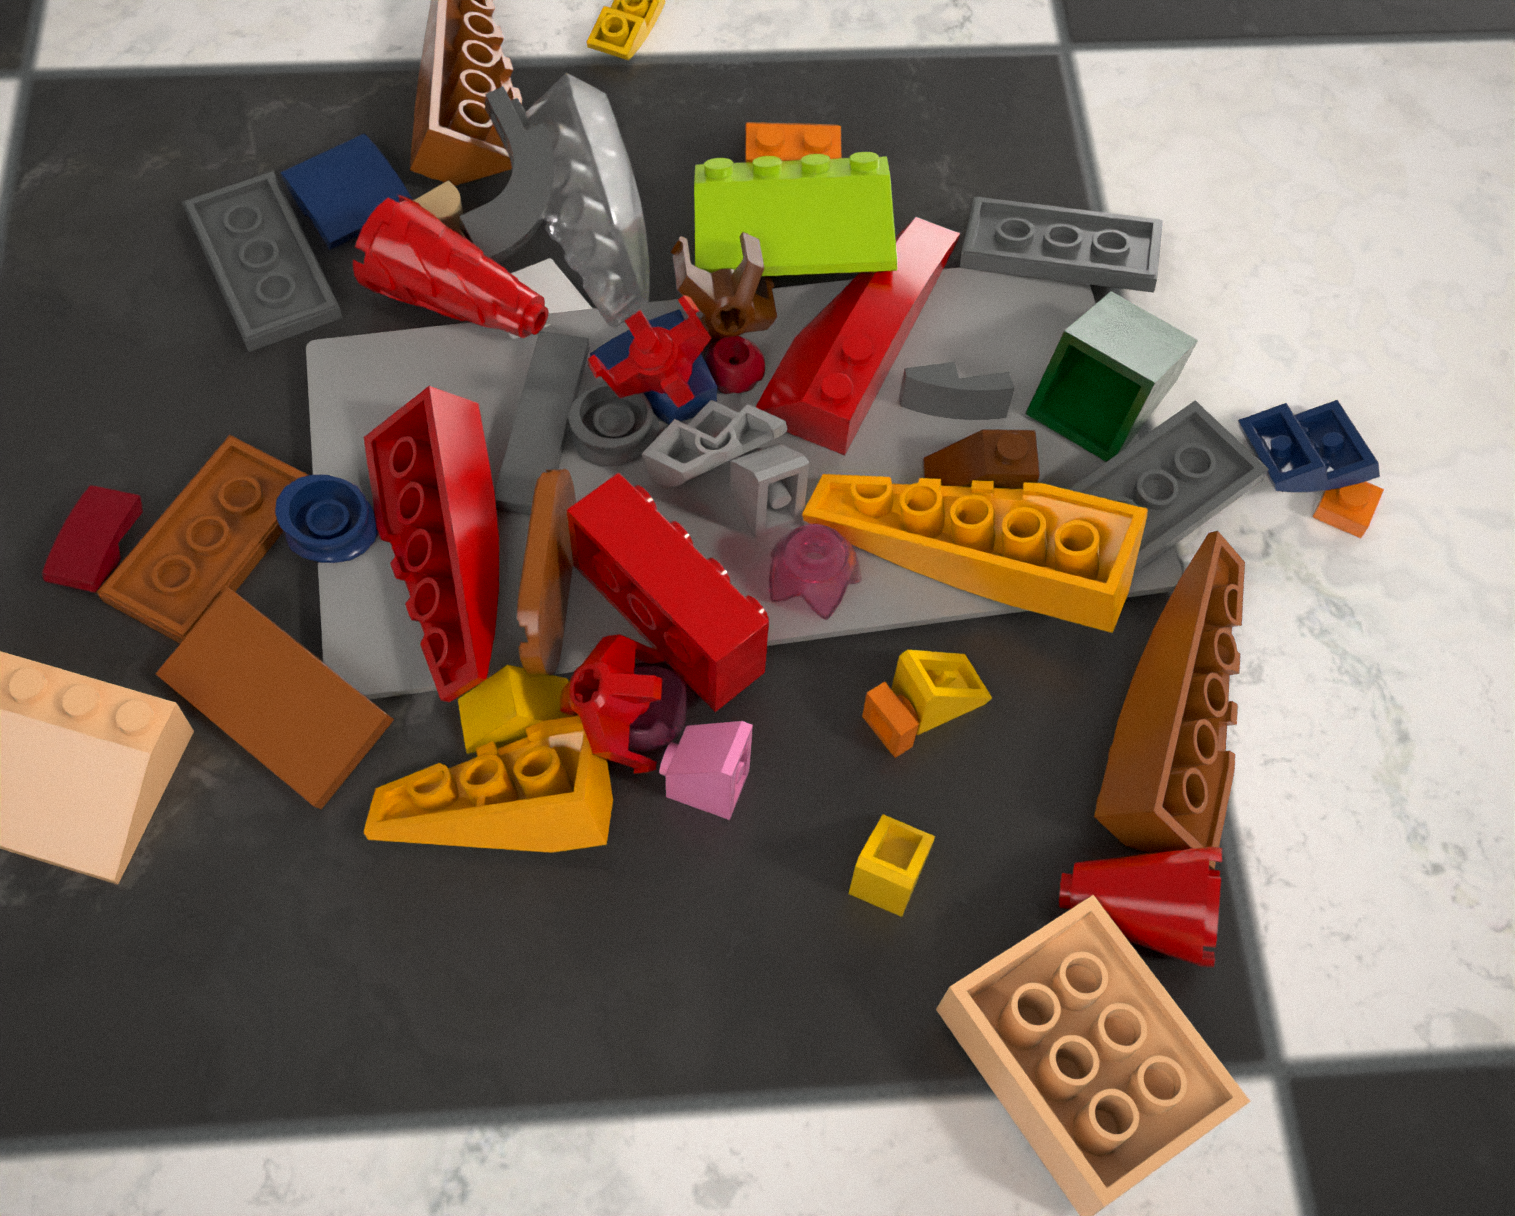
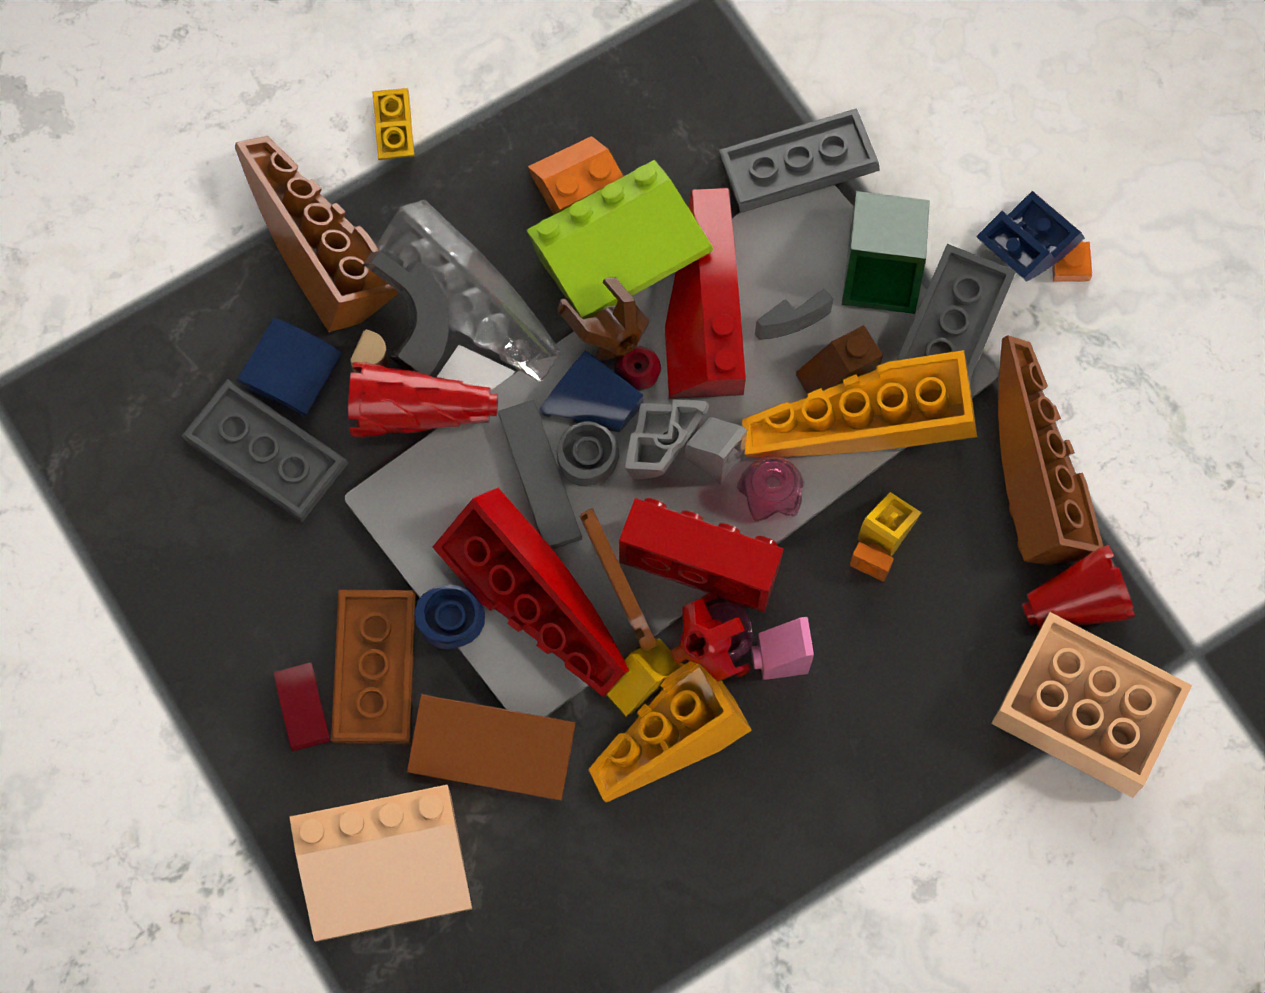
camera: 25 degrees left, 10 degrees up
(657, 357) = (600, 398): red piece -> none
(890, 865) = (921, 650): yellow slope -> none

